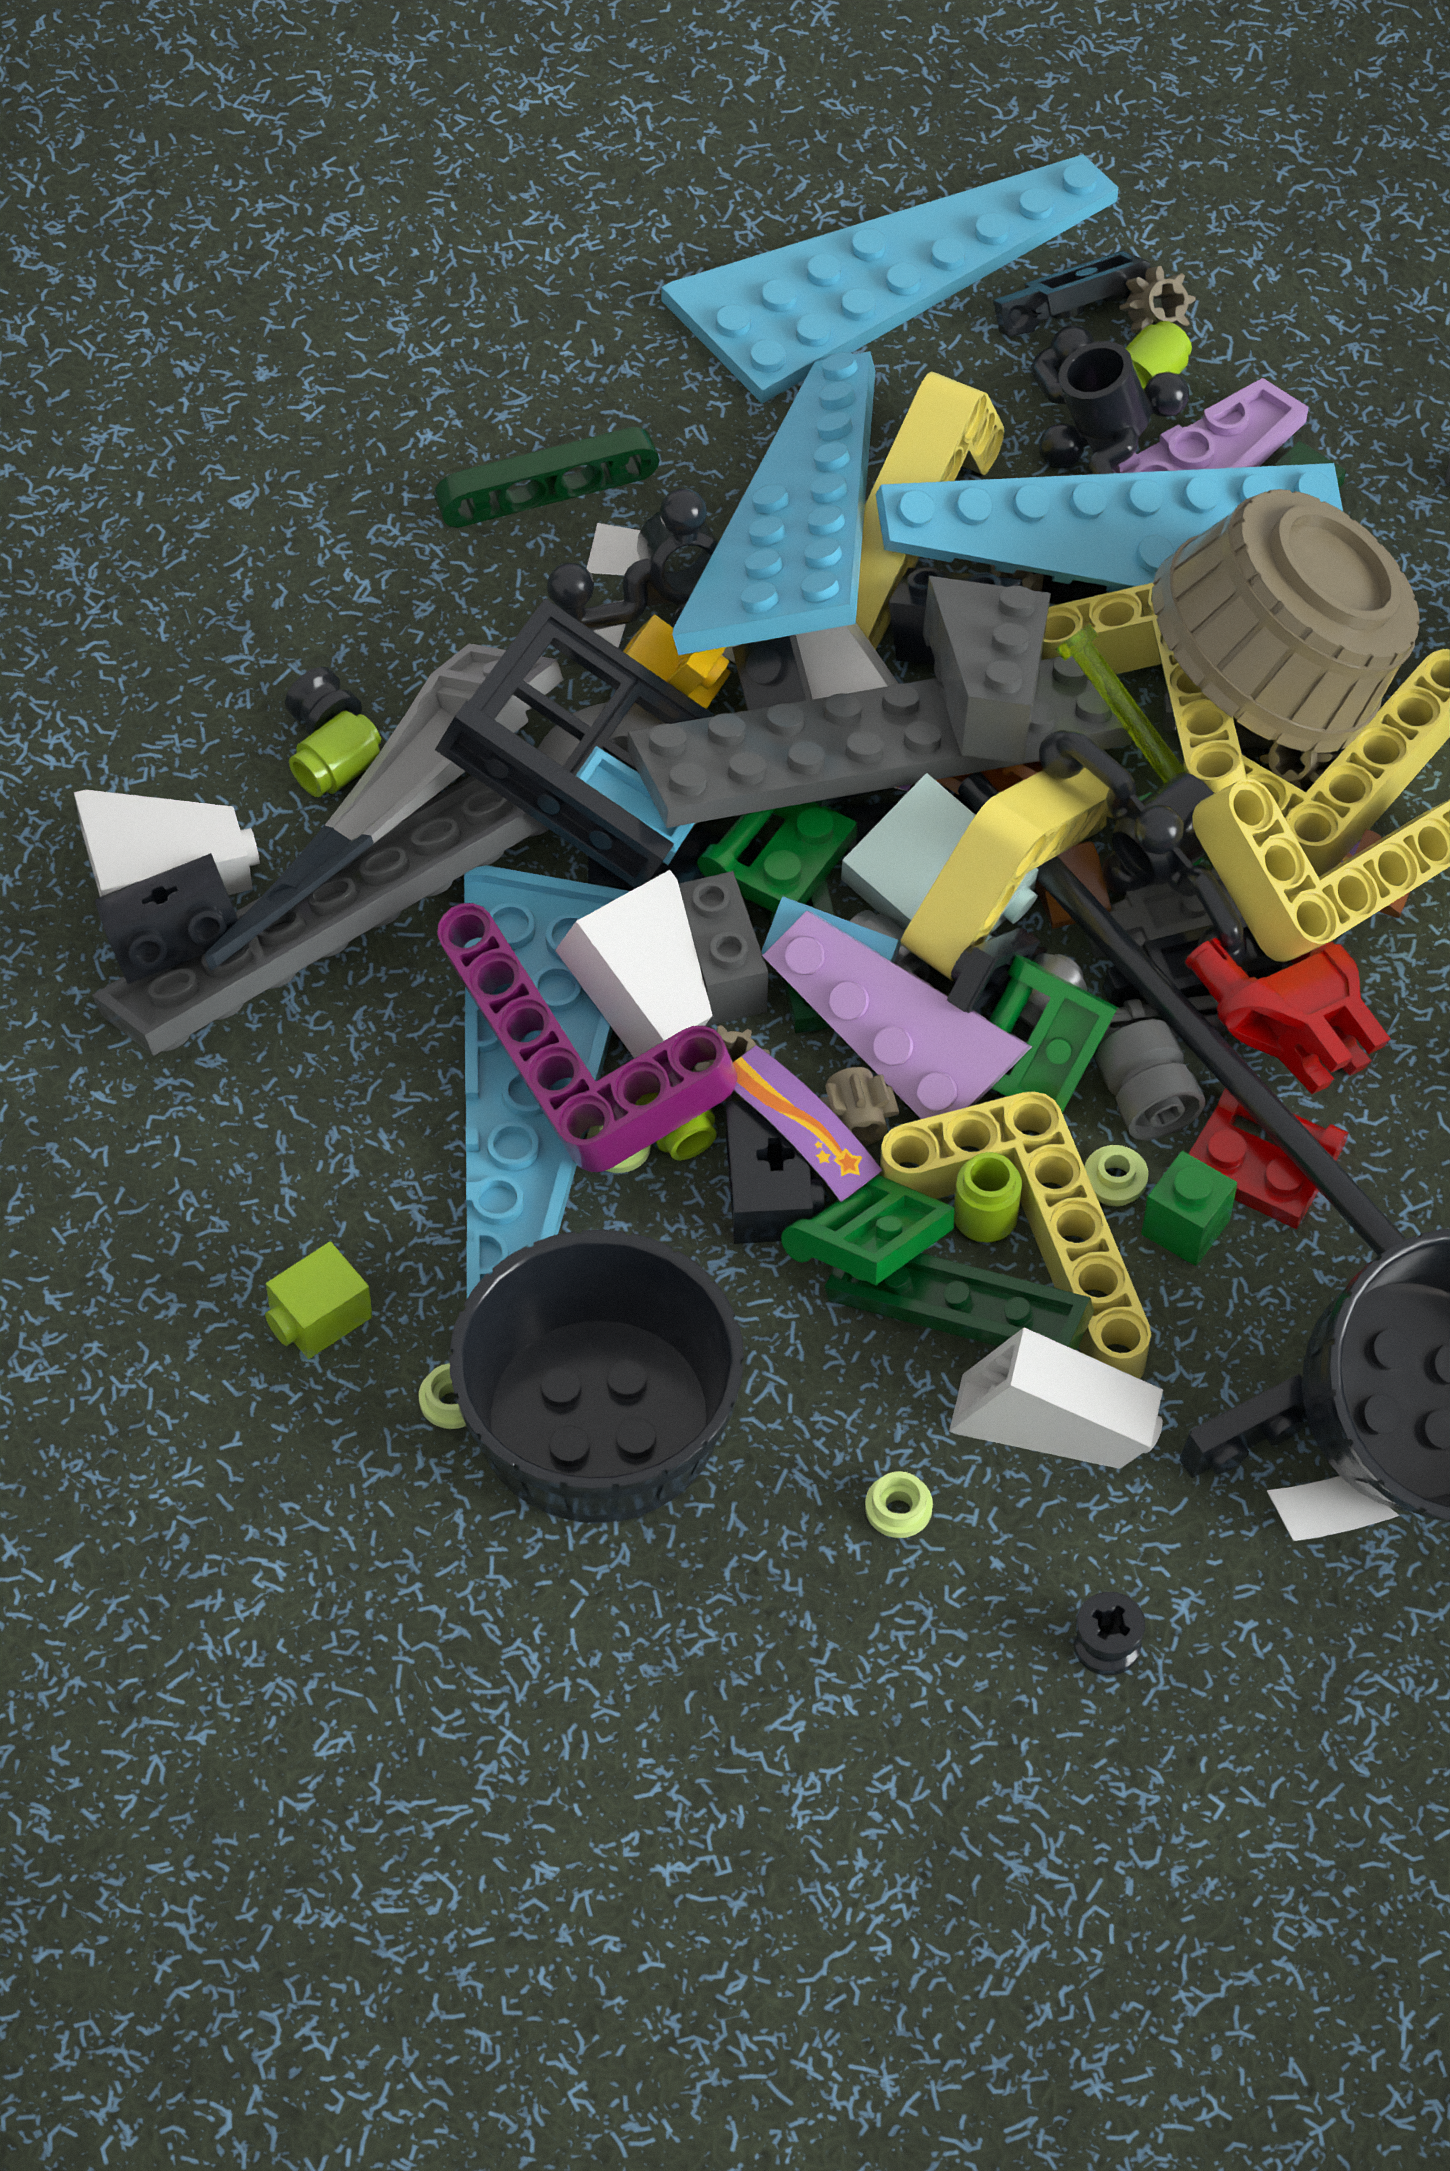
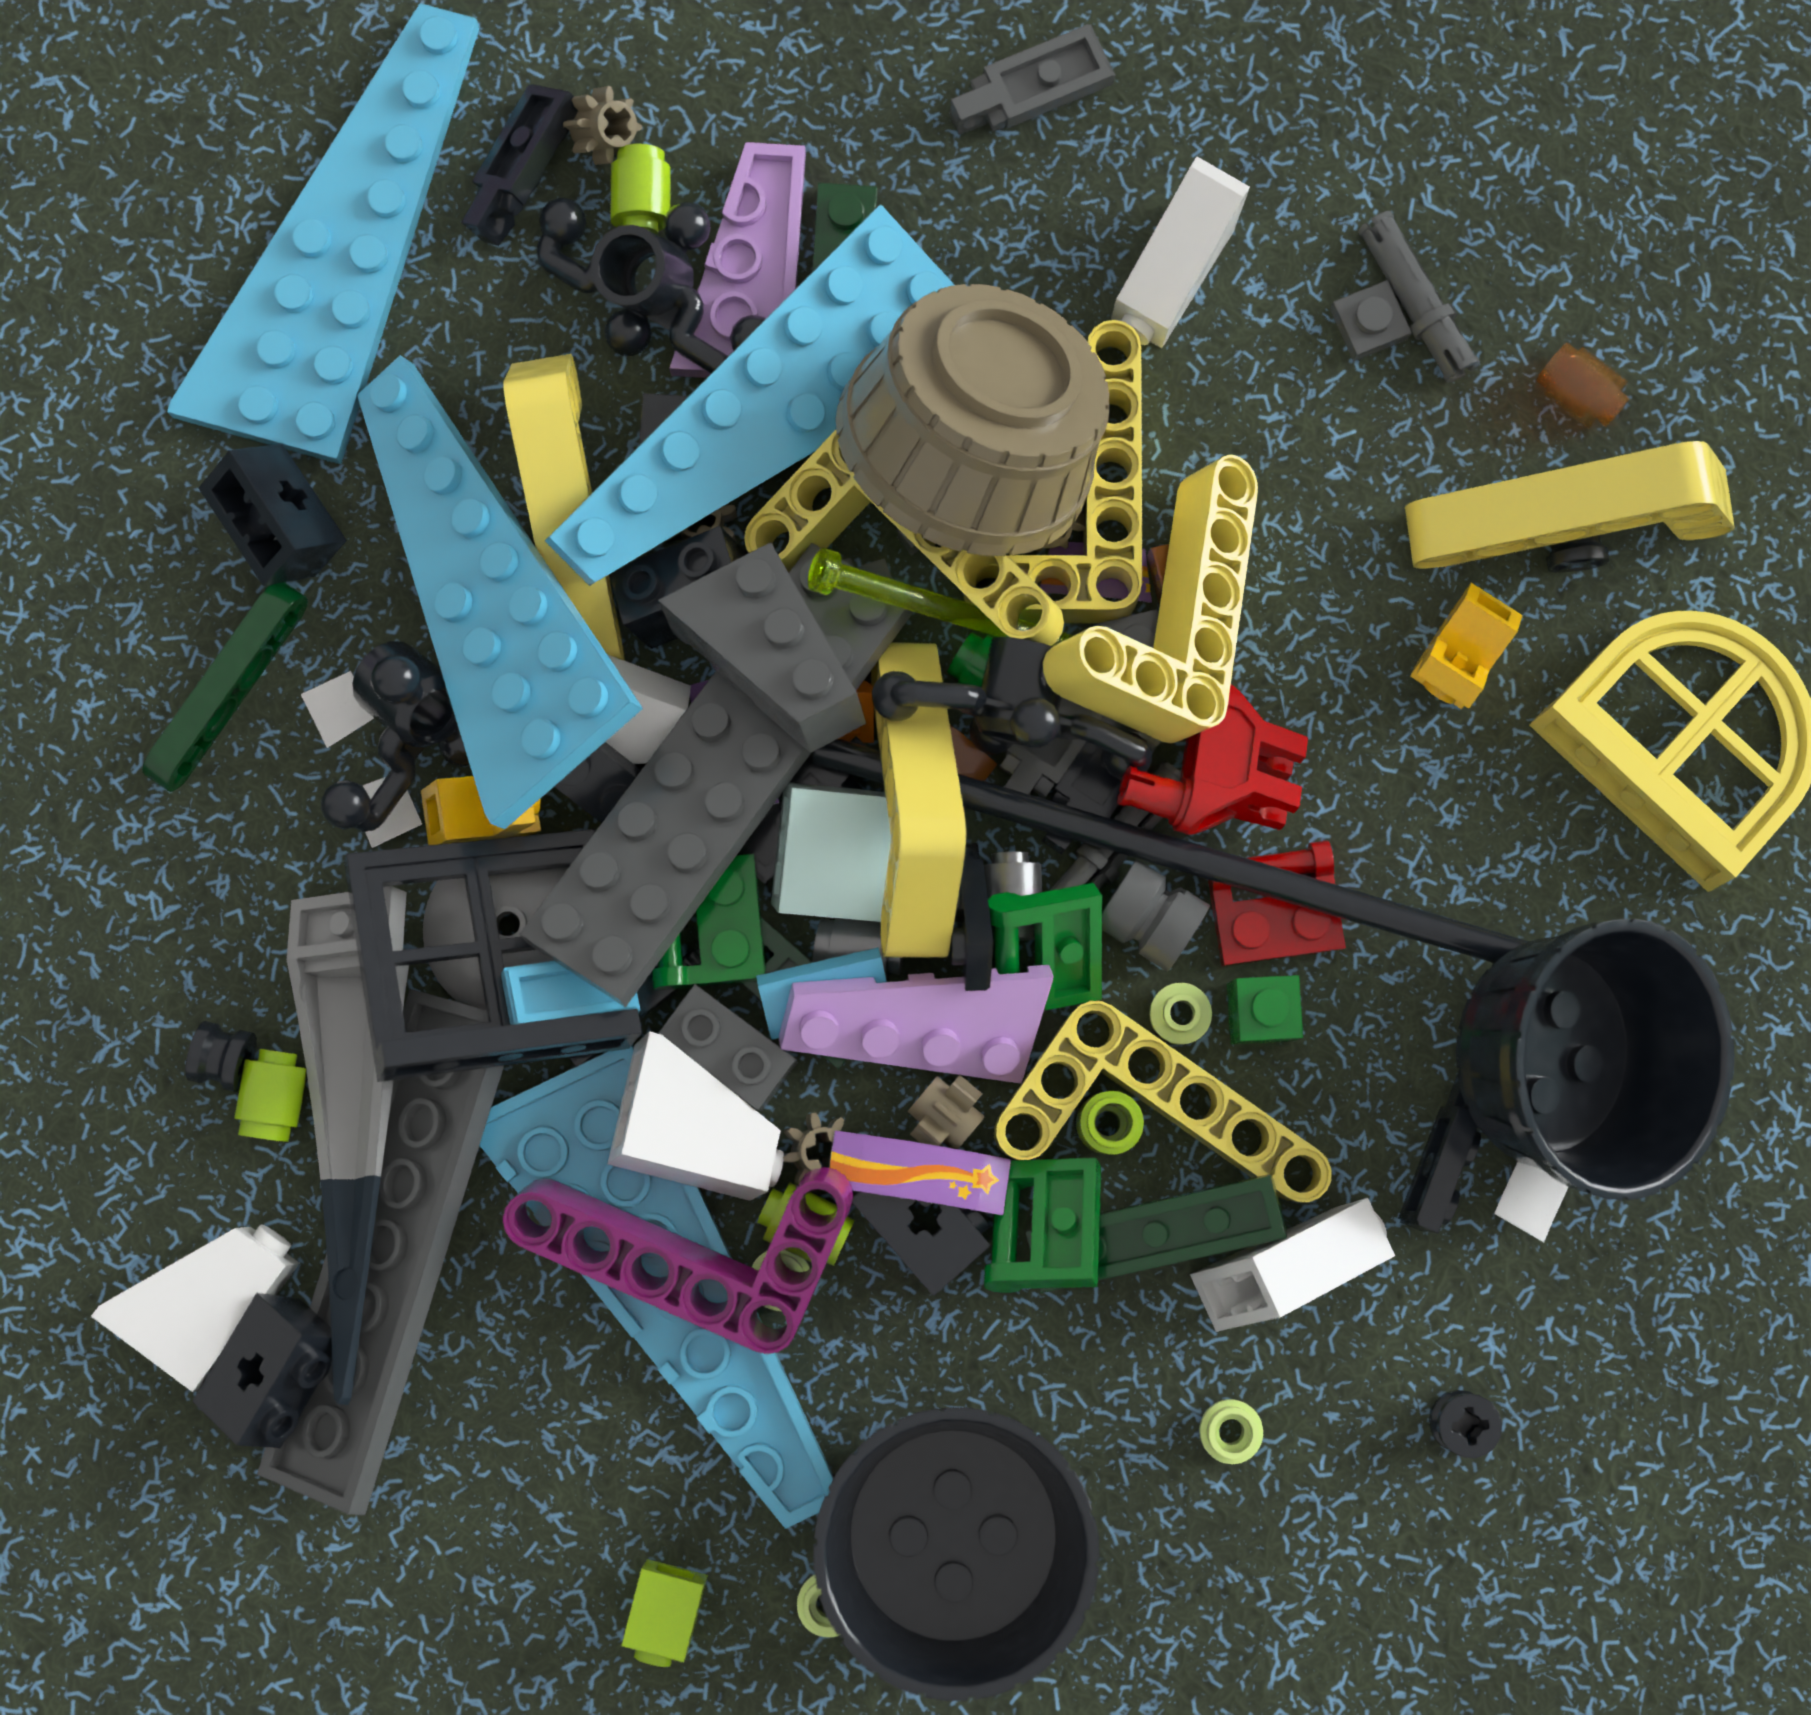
camera: 40 degrees left, 25 degrees up
(682, 386) = (272, 514): none -> black brick

